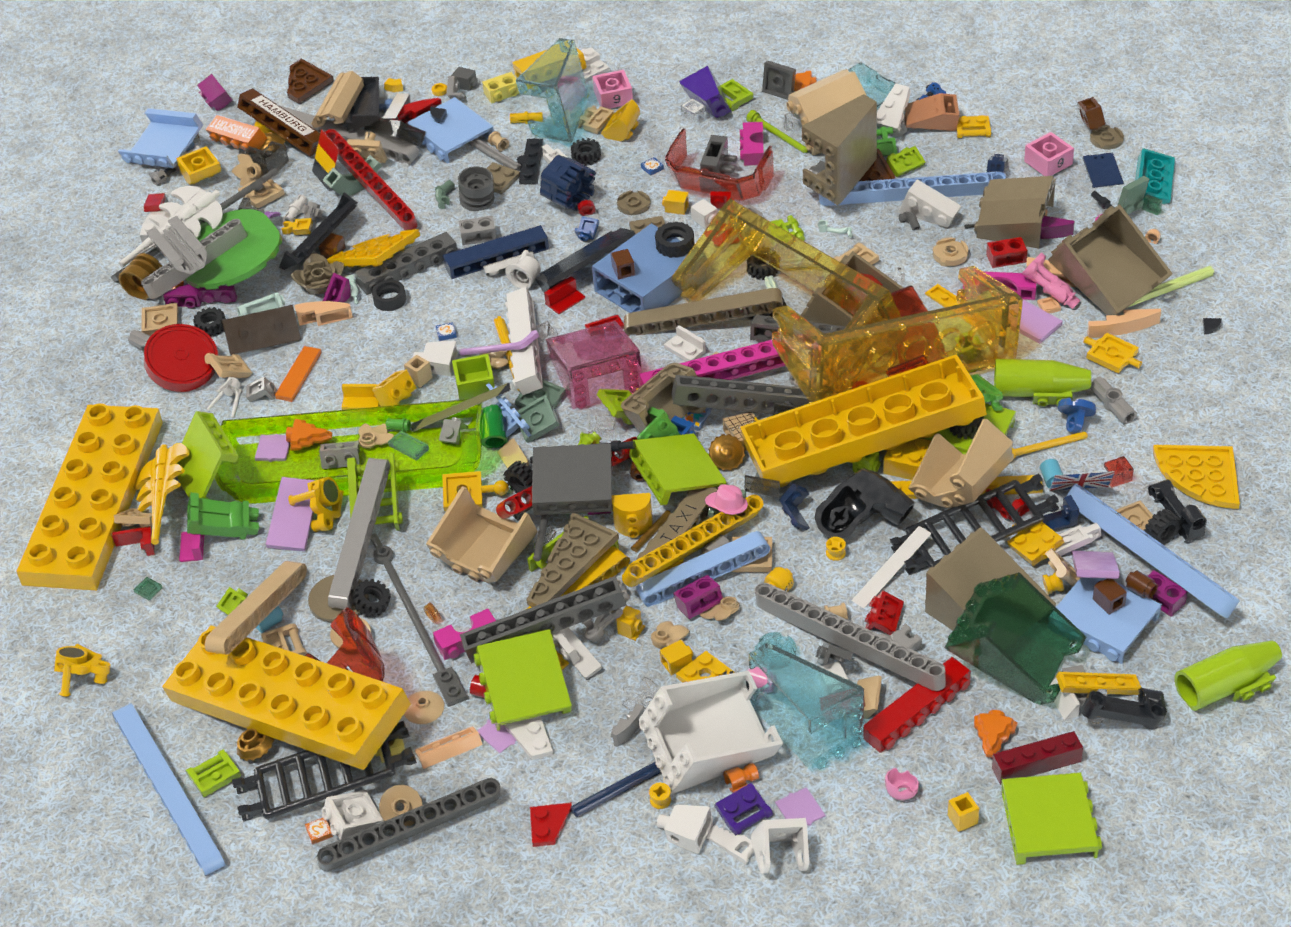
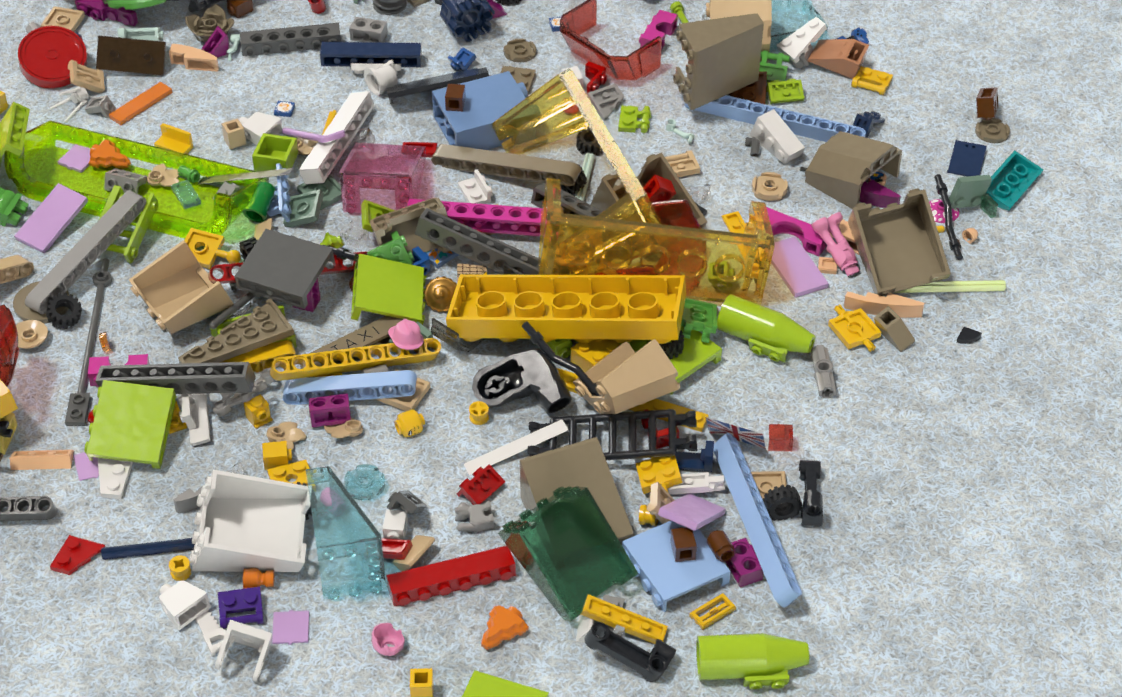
camera: 20 degrees right, 0 degrees up
(210, 315) = (92, 33): black tyre -> none
(322, 495) = (80, 209): yellow piece -> none
(375, 250) = (271, 19): yellow plate -> none
(391, 303) = (257, 69): black tyre -> none
(394, 388) = (203, 142): yellow brick -> none
(427, 712) = (46, 418): tan dish -> none
(563, 295) = (402, 110): red panel -> none
(586, 207) = (474, 41): red tile -> none
(632, 513) = (323, 318): yellow brick -> none
(651, 531) = (318, 345): pearl gold bar -> none
(674, 249) = (510, 82): black tyre -> none
(676, 202) = (554, 61): yellow brick -> none
(717, 157) = (612, 33): dark grey piece -> none
(790, 502) = (466, 359): dark blue bracket -> none
(839, 610) = (438, 469): tan bush -> none
(851, 636) = (432, 494): light grey beam -> none
(859, 459) = (537, 339): none -> black bar
(1006, 252) = (819, 203): red brick -> none
(1038, 757) = (523, 664): dark red brick -> none
(1048, 444) = (693, 386): yellow piece -> none
(1049, 154) = (921, 128): bright pink brick -> none
(1049, 469) = (720, 412): medium azure brick -> none
(1076, 412) = (779, 367): blue tile -> none
(1149, 340) = (894, 329): none -> dark tan slope
(1158, 658) = (700, 620): none -> yellow tile
(1201, 472) = (860, 466): yellow plate -> none

